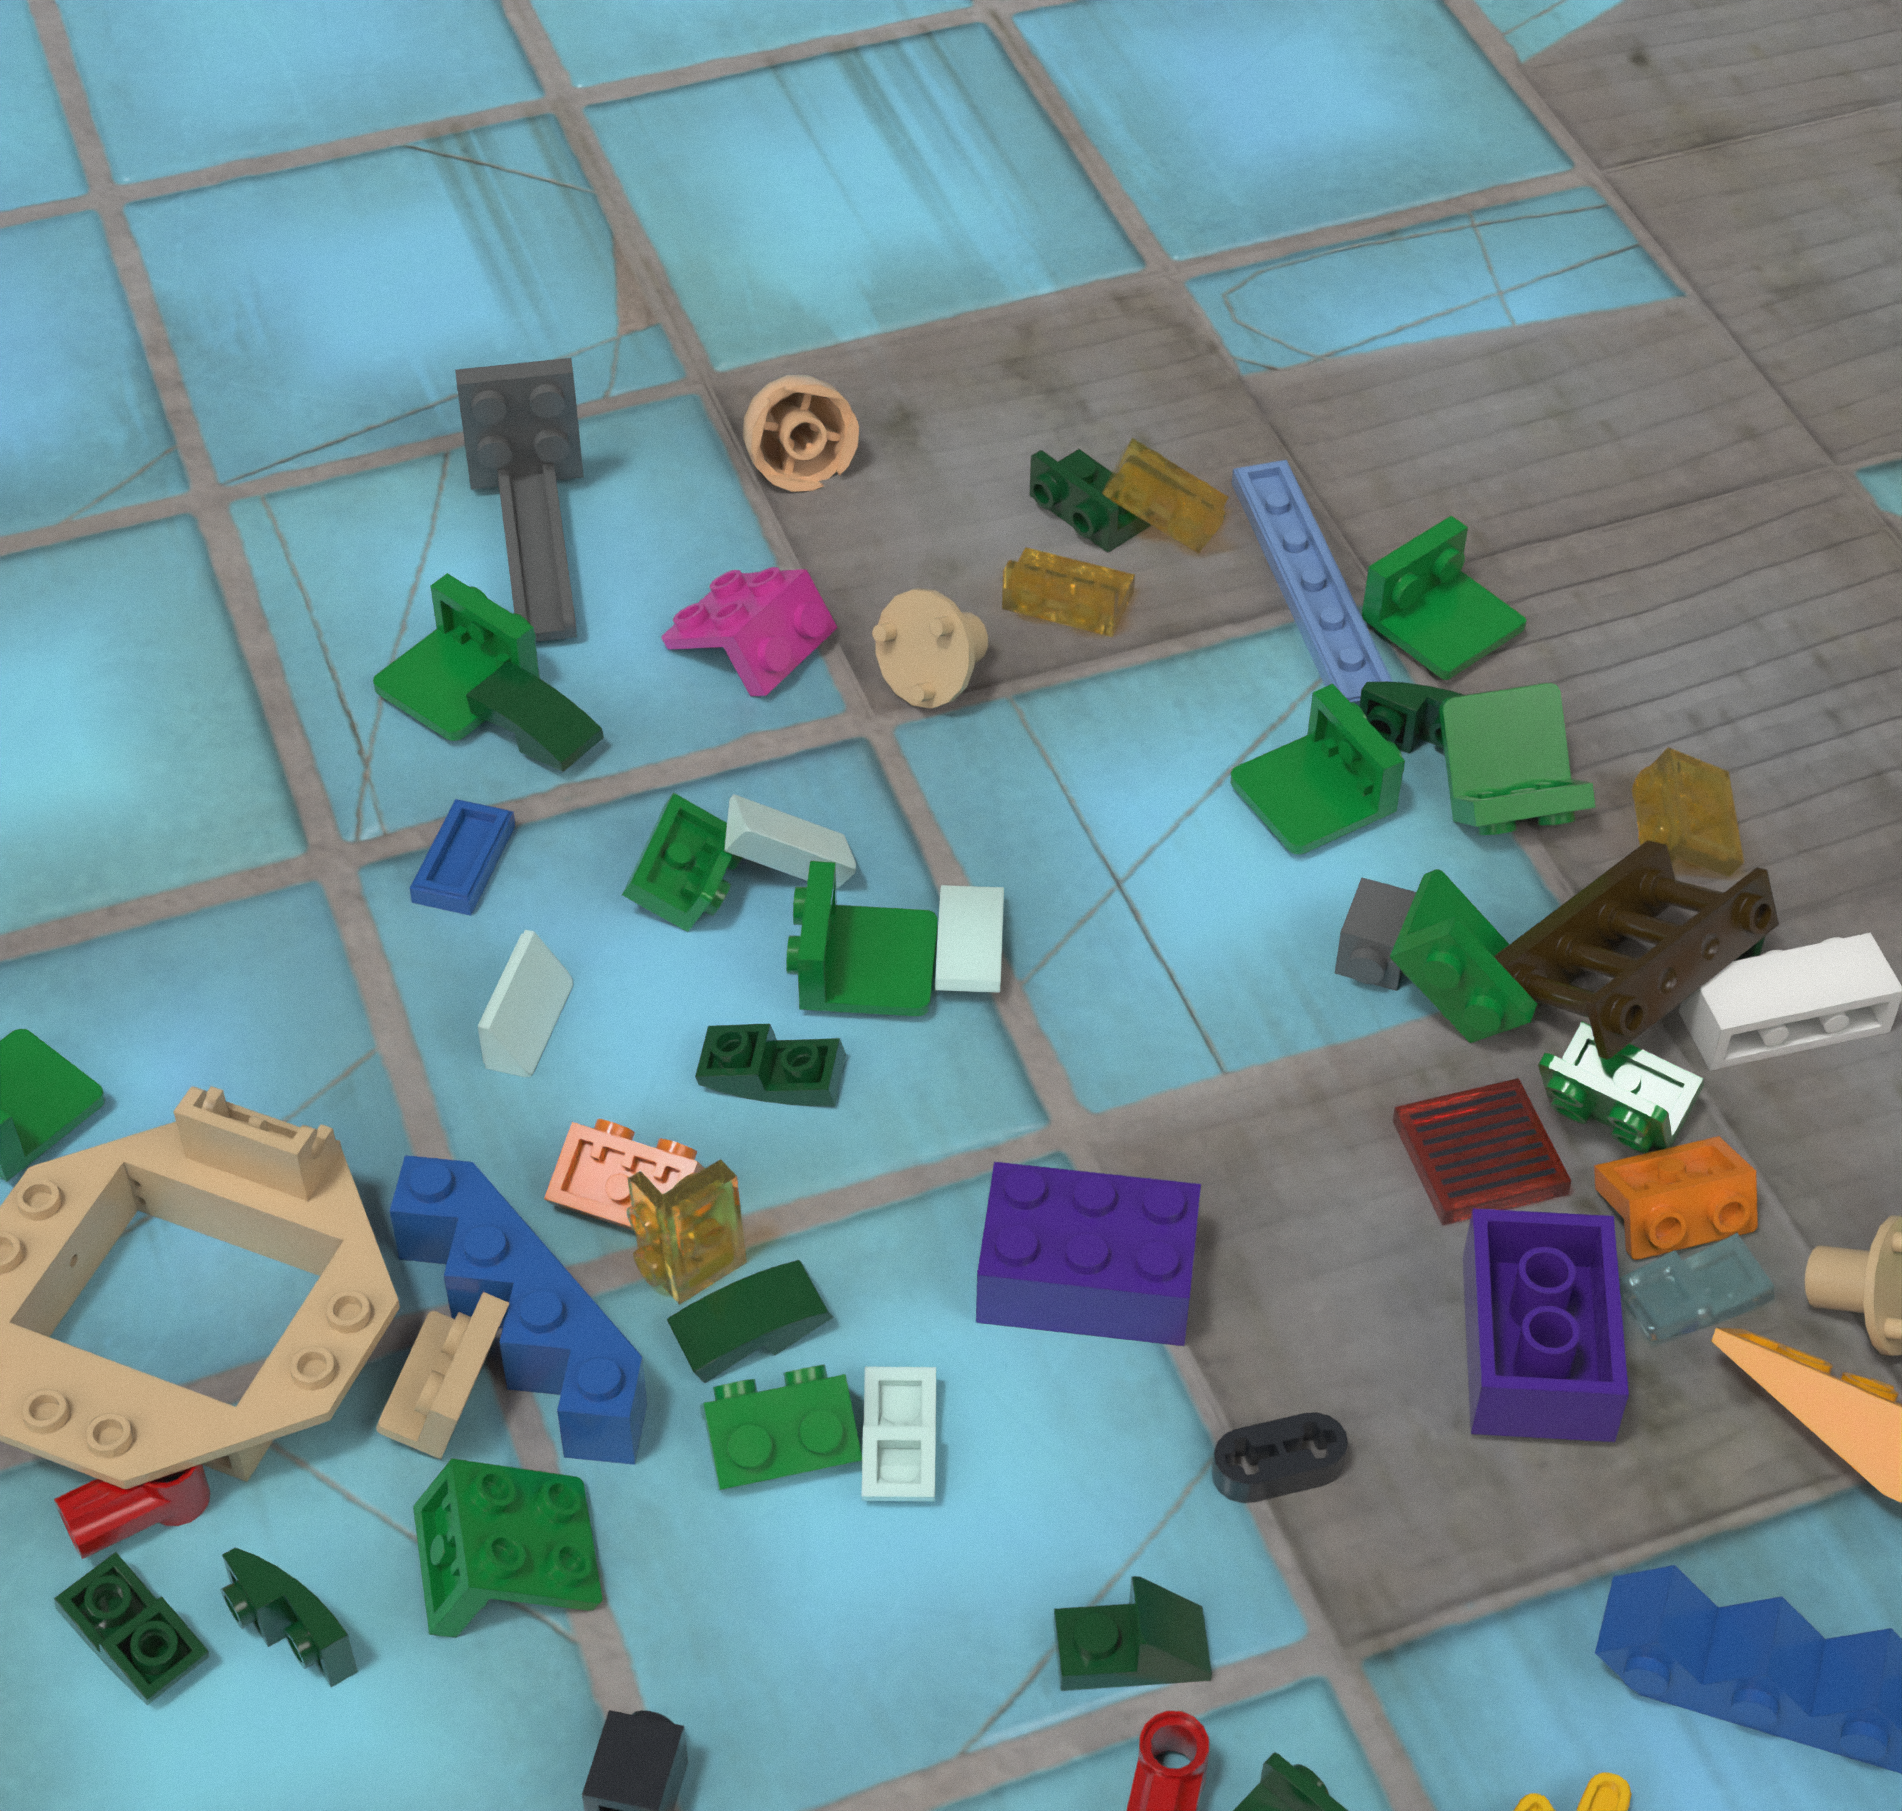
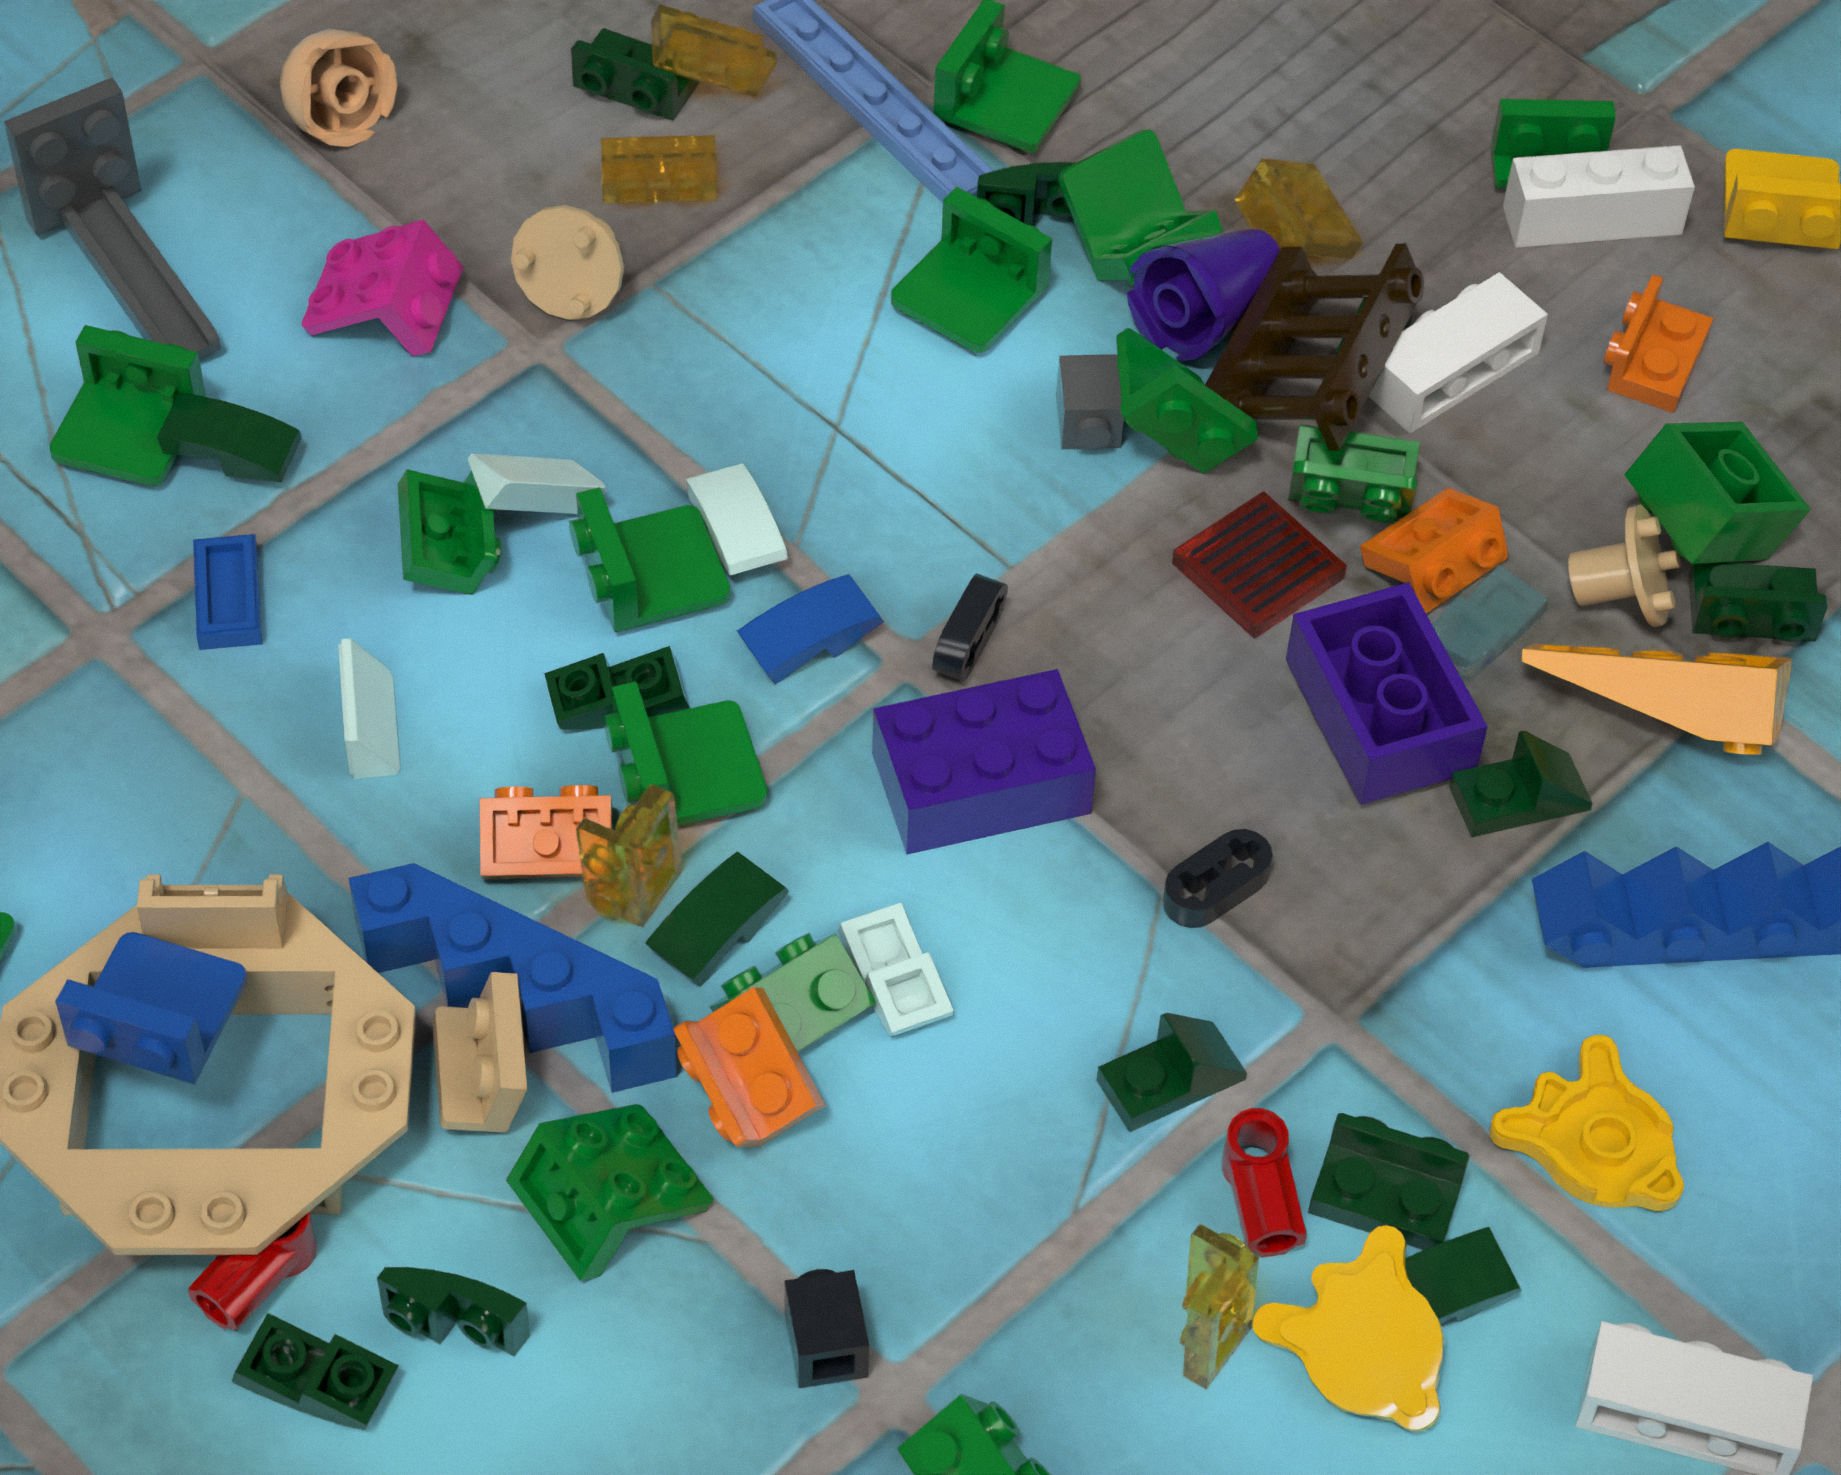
camera: 25 degrees left, 5 degrees up
(150, 1214) = (153, 1006): none -> blue bracket
(688, 1481) = (748, 1070): none -> orange bracket
(796, 1155) = (691, 752): none -> green bracket
(998, 1059) = (801, 627): none -> blue slope
(1145, 1116) = (969, 627): none -> black beam
(1543, 854) = (1198, 289): none -> dark purple cone
(1660, 1480) = (1521, 791): none -> dark green slope

